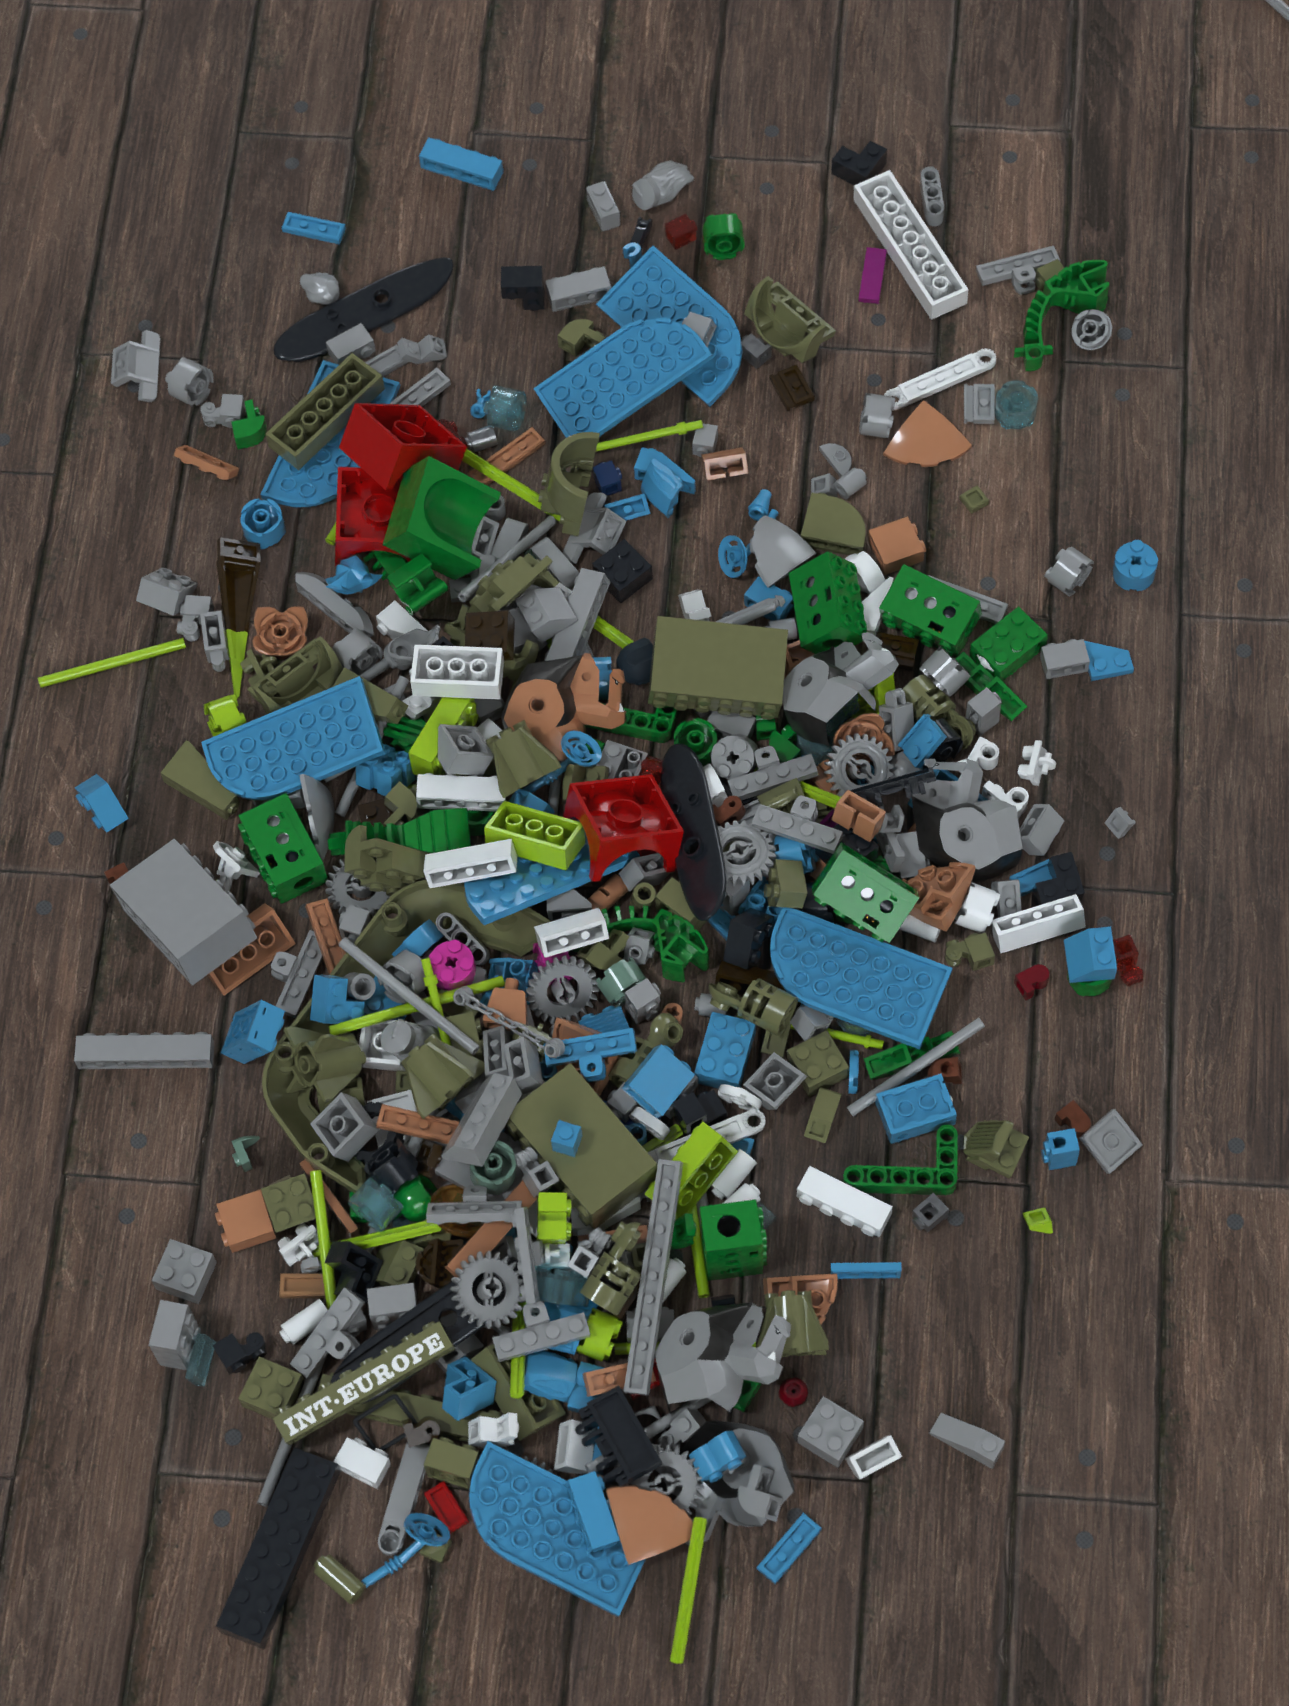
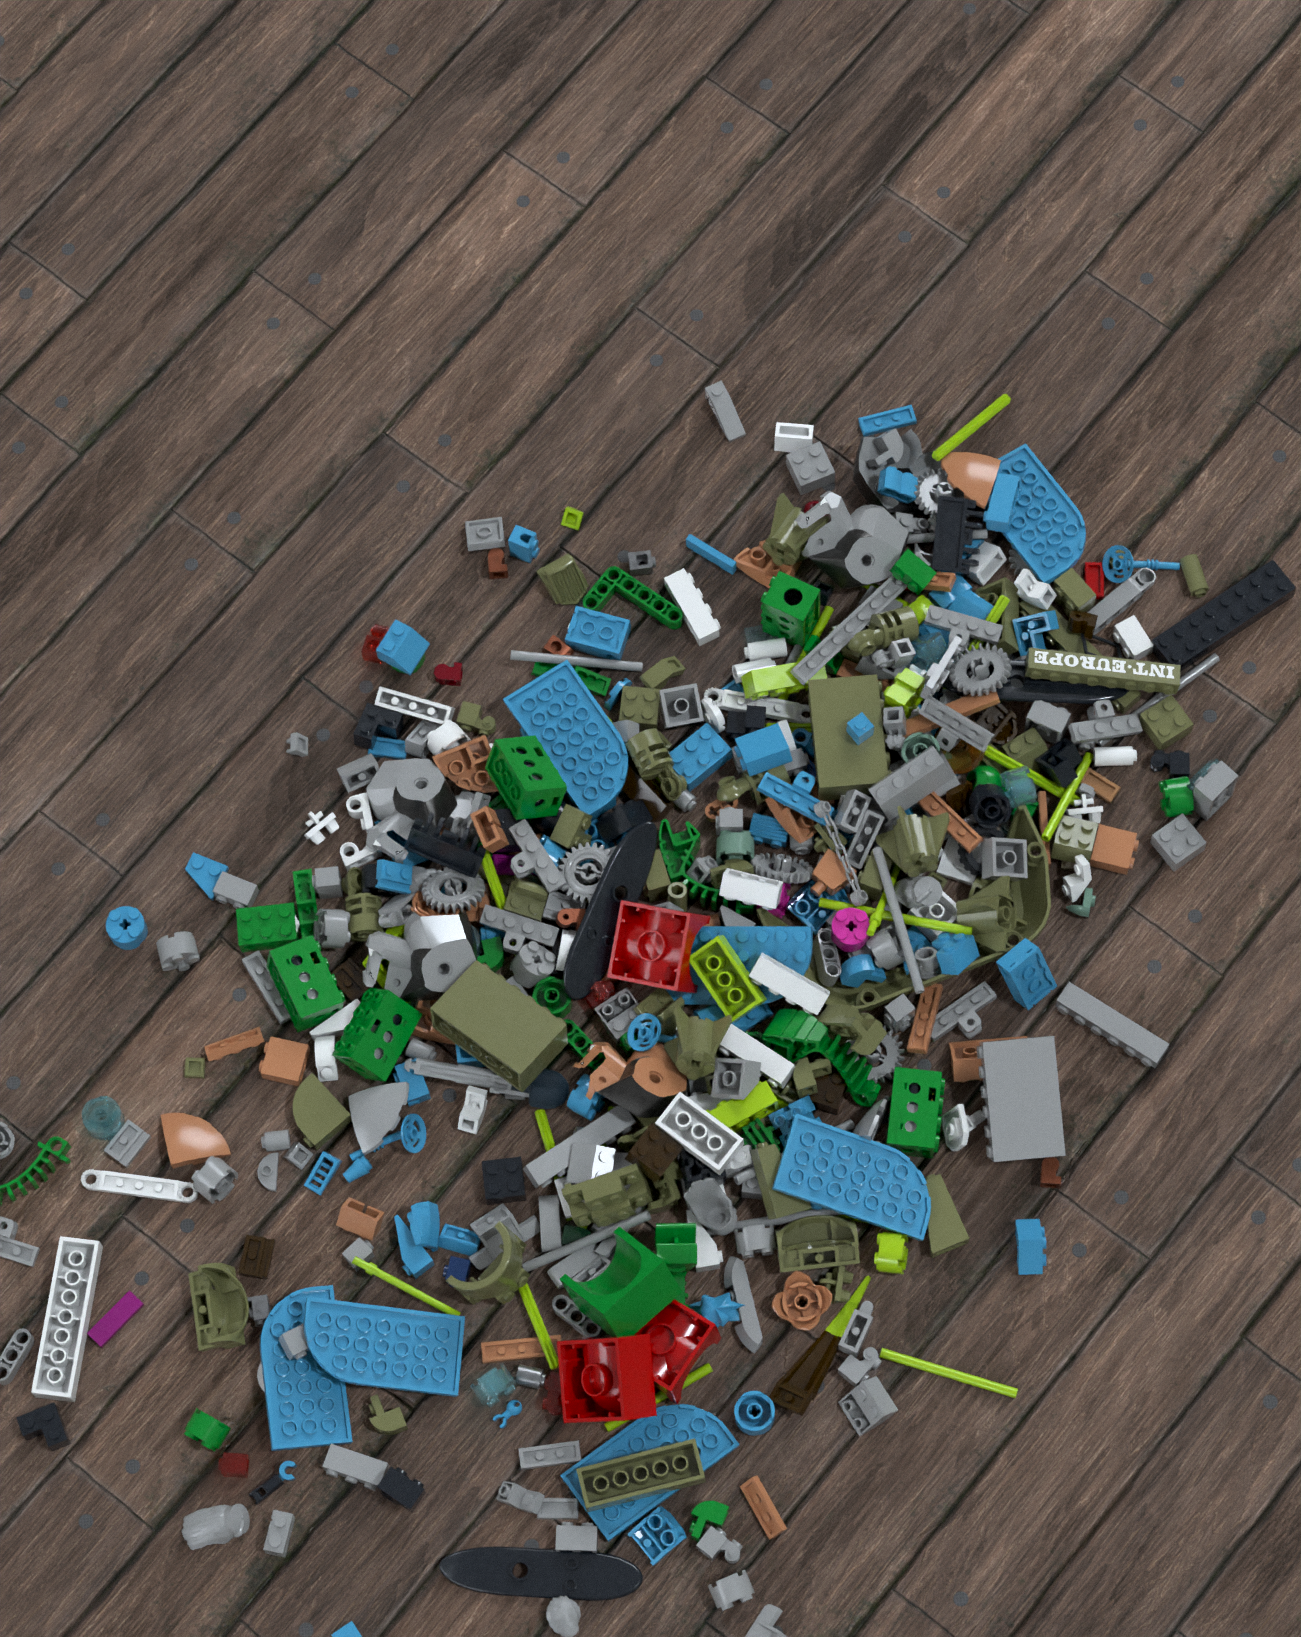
camera: 145 degrees left, 5 degrees up
(212, 1312) = (1176, 797): none -> green brick
(262, 1163) = (1077, 882): none -> white slope
(282, 390) = (658, 1534): none -> dark azure slope
(632, 1358) = (912, 572): none -> green brick
(794, 498) = (325, 1155): none -> dark azure slope
(954, 534) = (234, 1044): none -> nougat plate

